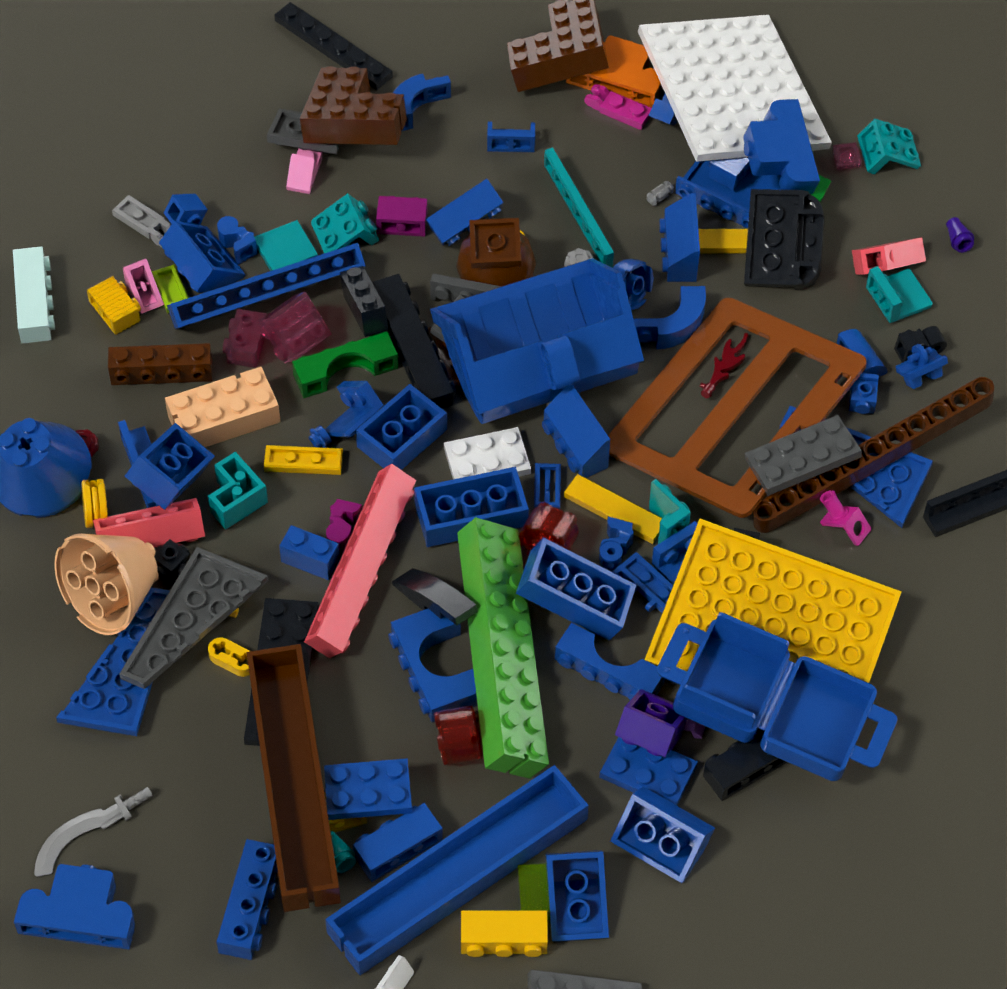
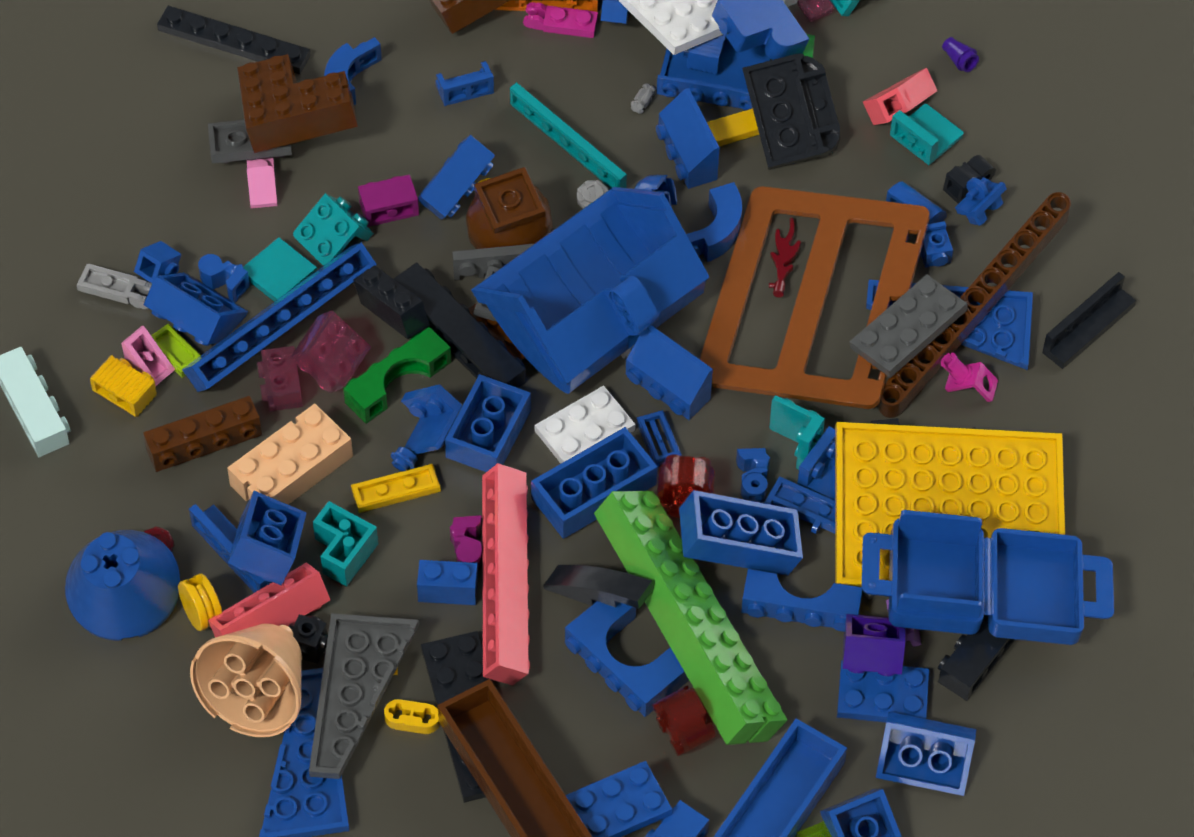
camera: 20 degrees left, 0 degrees up
(606, 503) = (730, 437): yellow tile -> none

